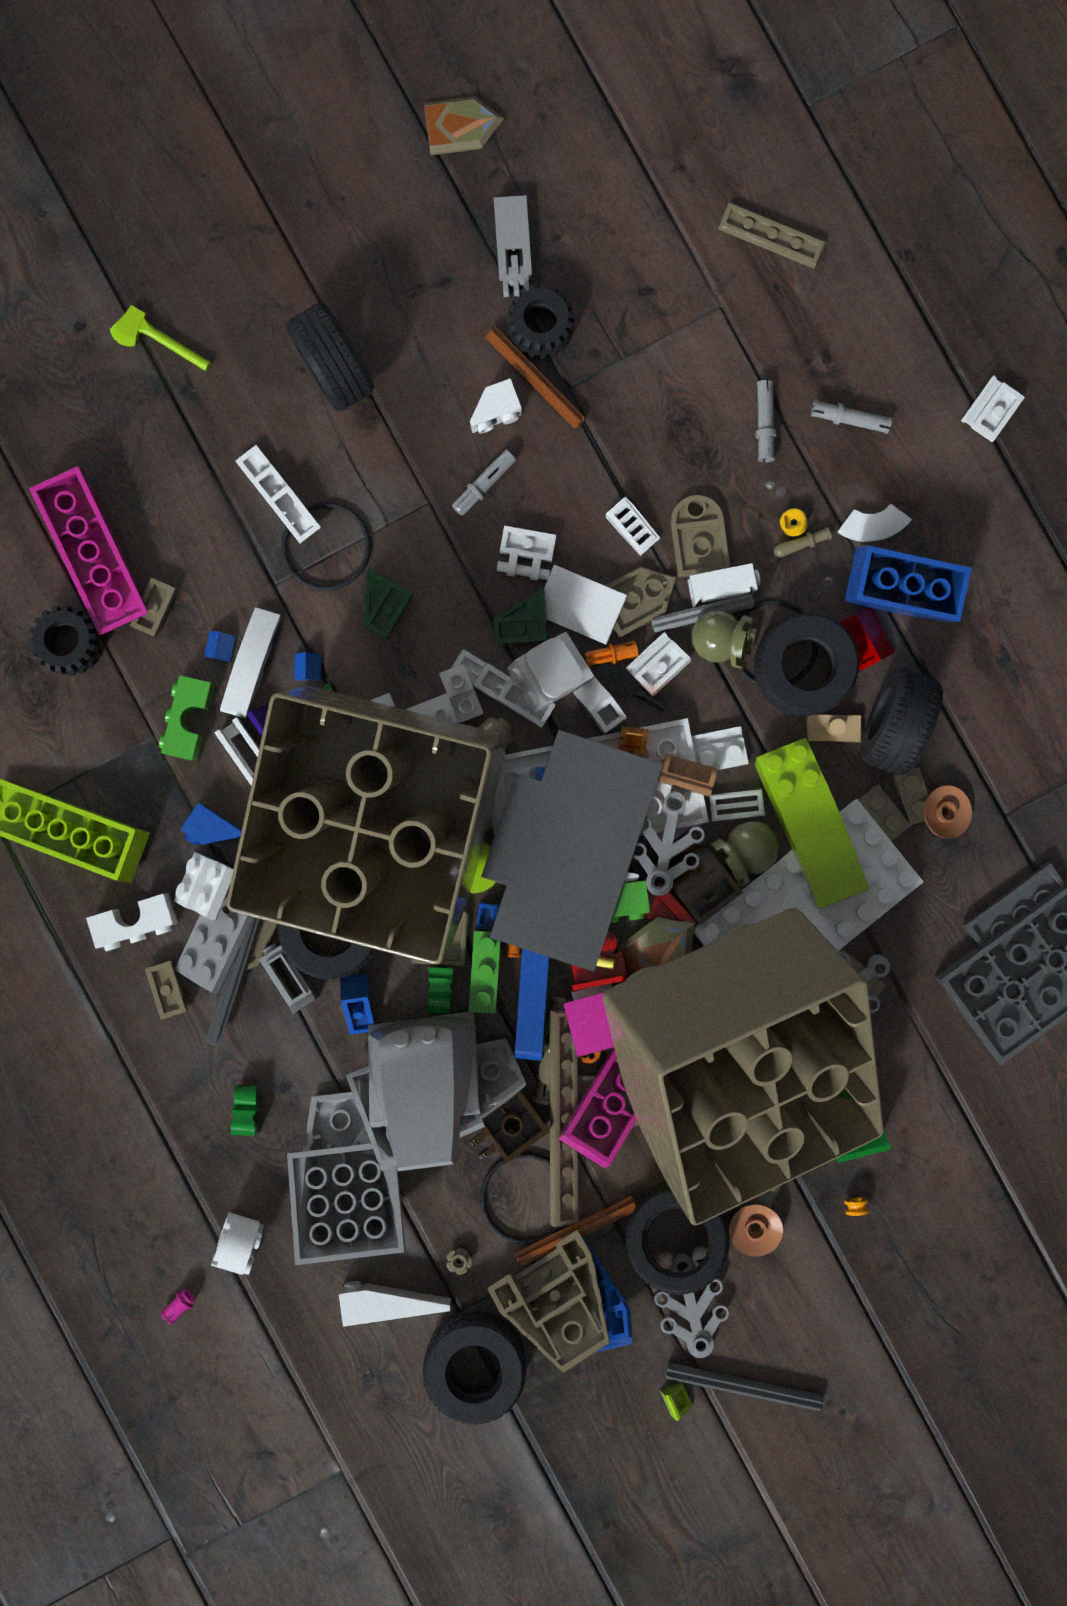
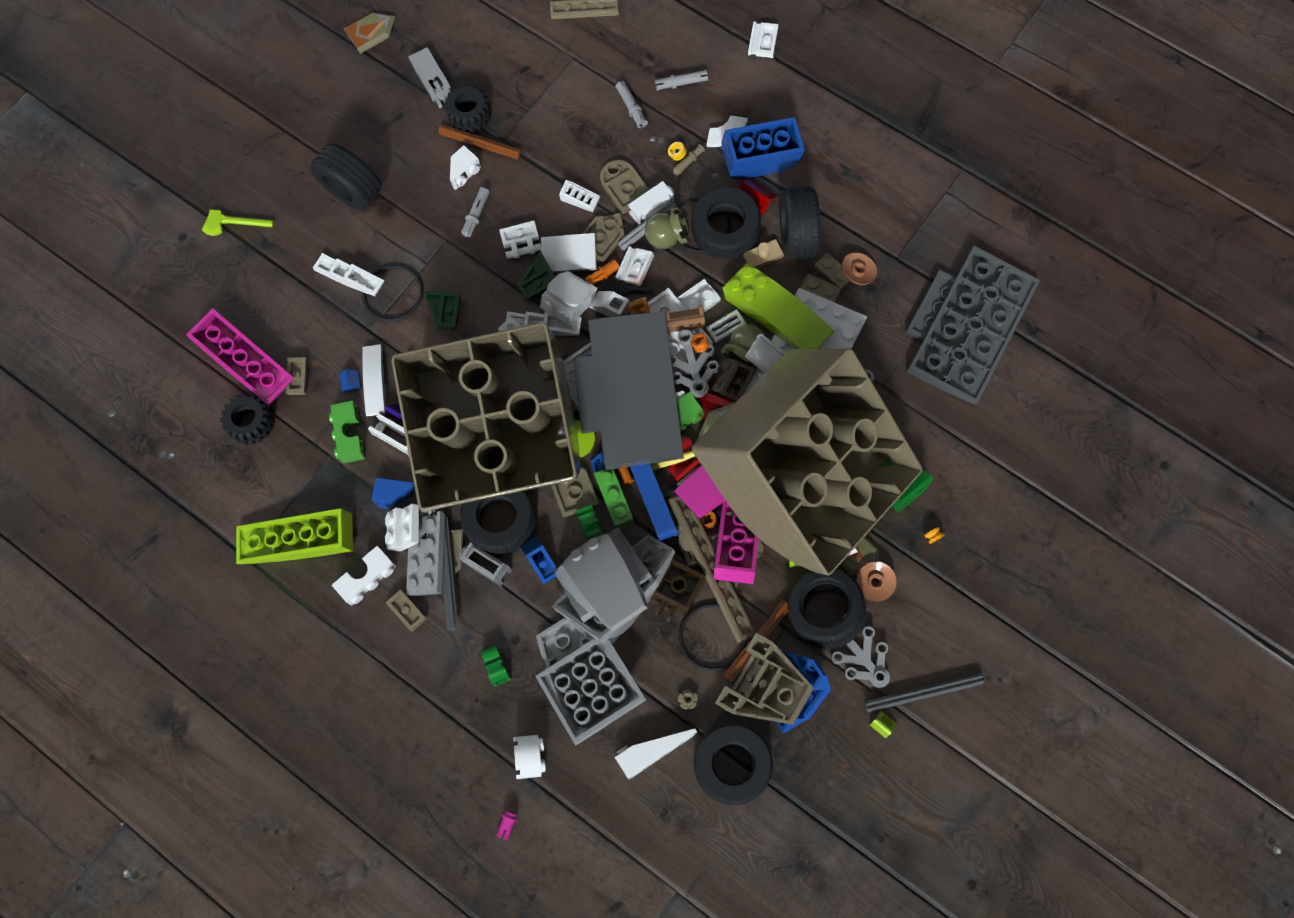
camera: 15 degrees left, 15 degrees down
(694, 827) = (700, 342): none -> orange bush
(766, 884) = (764, 353): none -> white plate

